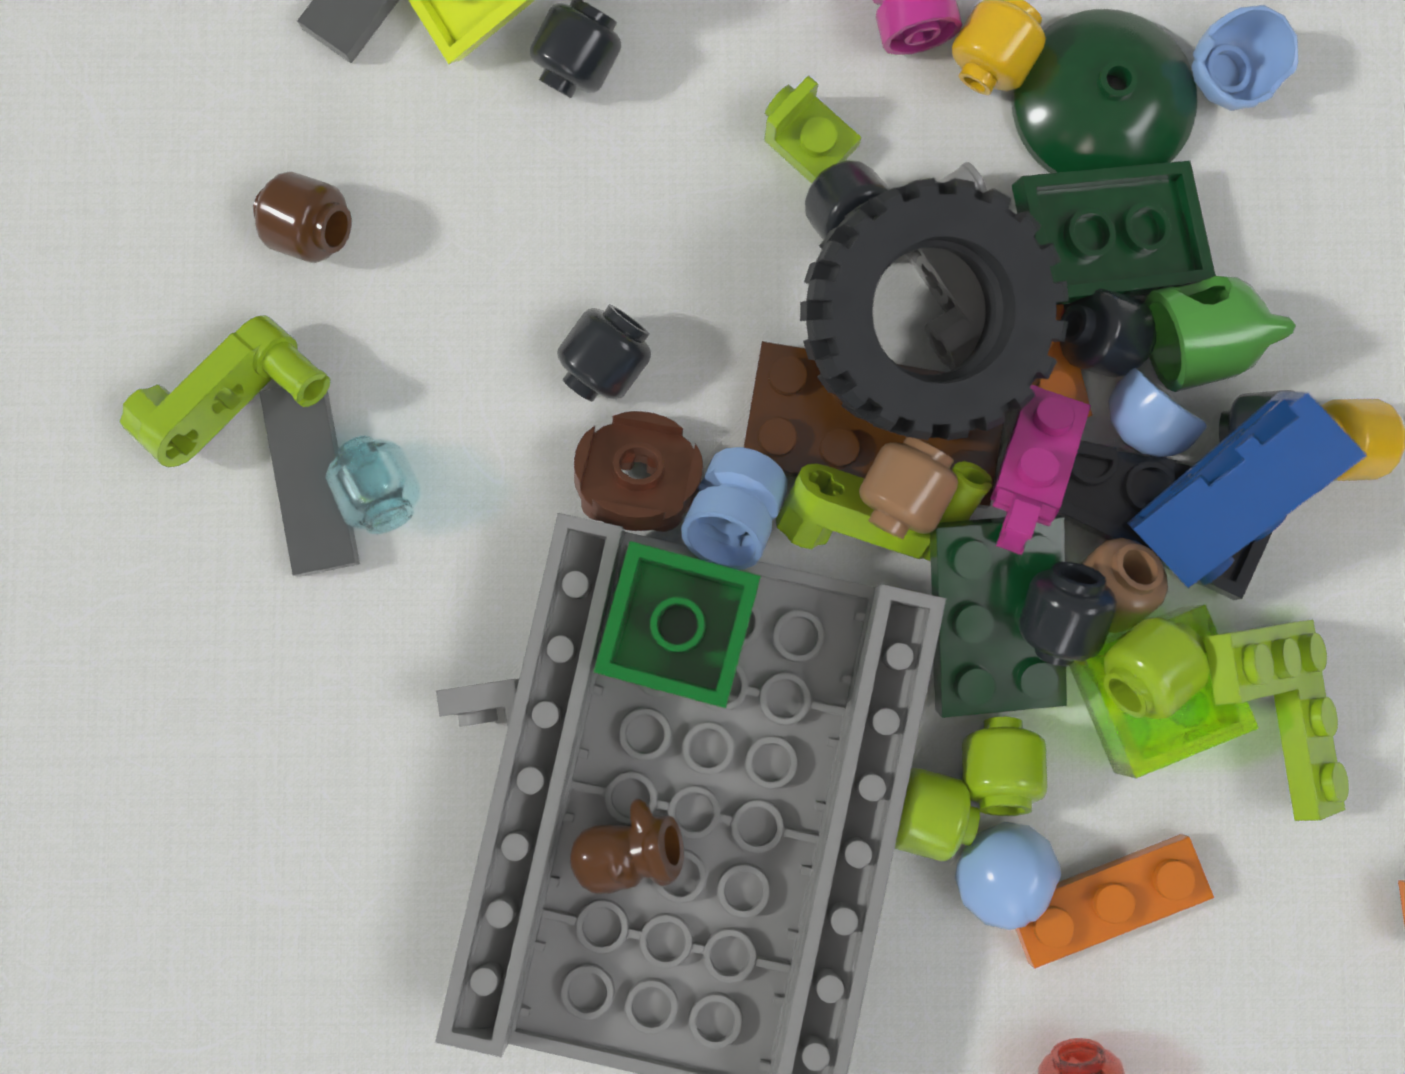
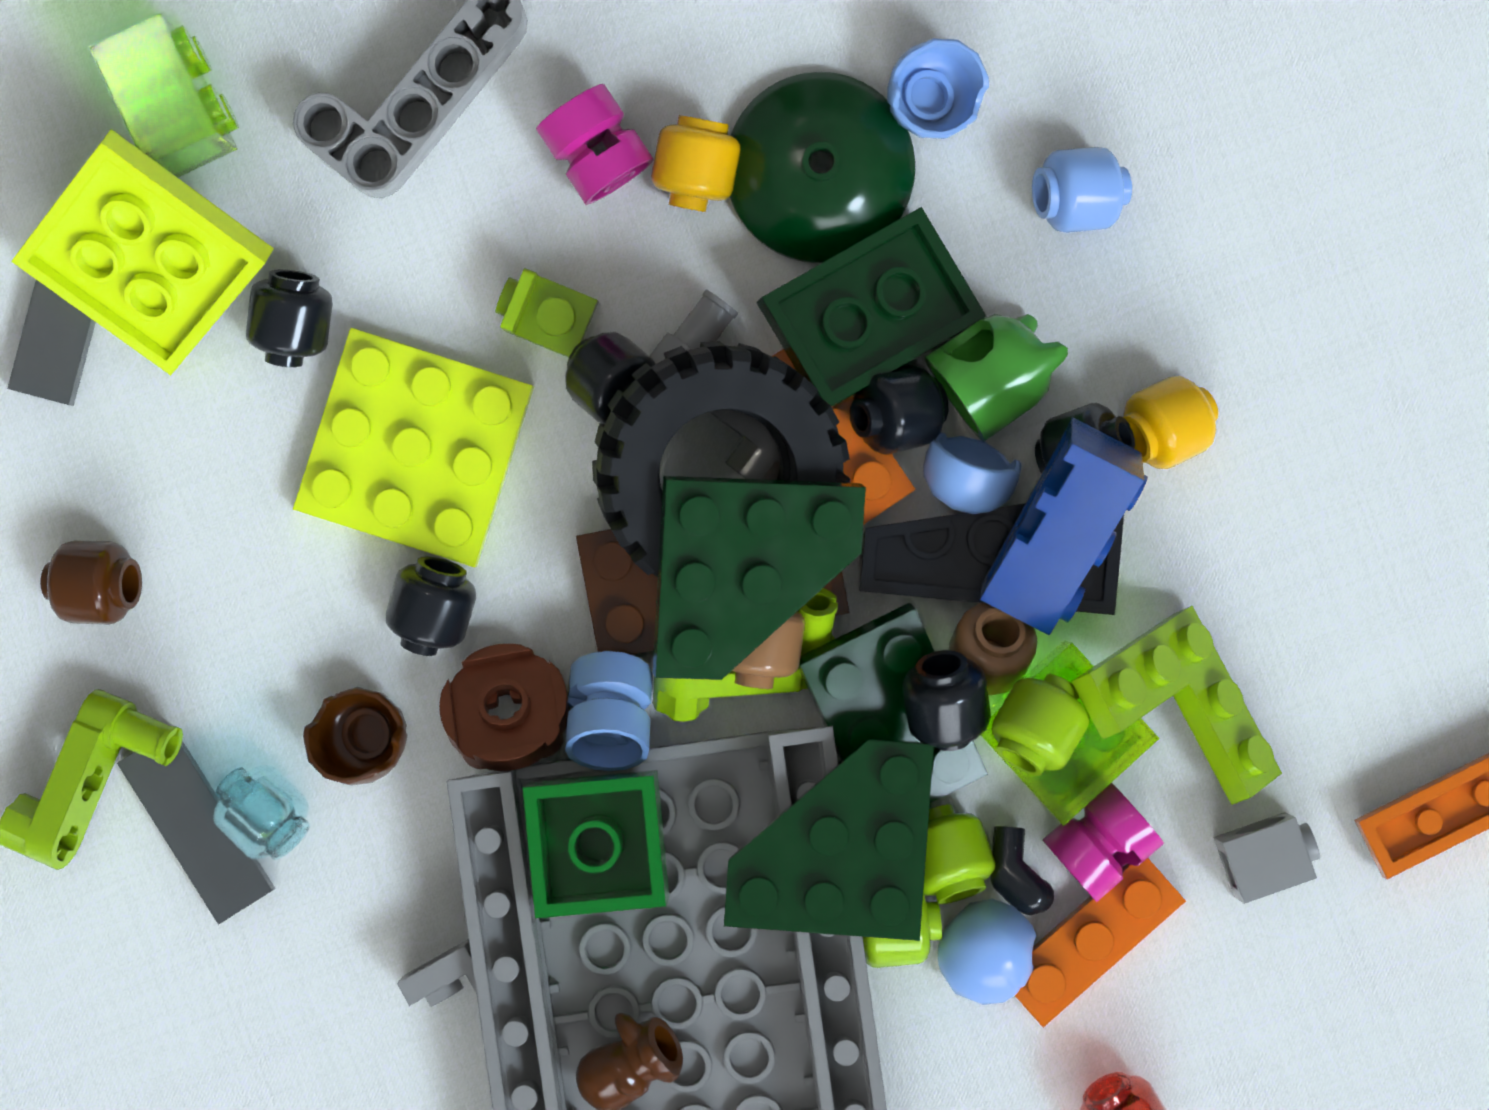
camera: 20 degrees left, 5 degrees up
(488, 447) = (355, 737): none -> reddish brown hair
(643, 209) = (413, 447): none -> neon yellow plate
(915, 722) = (843, 852): none -> dark green plate
(930, 397) = (743, 563): none -> dark green plate
(1037, 465) = (876, 580): dark pink hinge -> none
(1057, 813) = (1013, 877): none -> black arm
(1163, 808) = (1103, 842): none -> dark pink wheel
(1308, 885) = (1268, 856): none -> light grey brick
(1344, 198) = (1081, 189): none -> light blue head

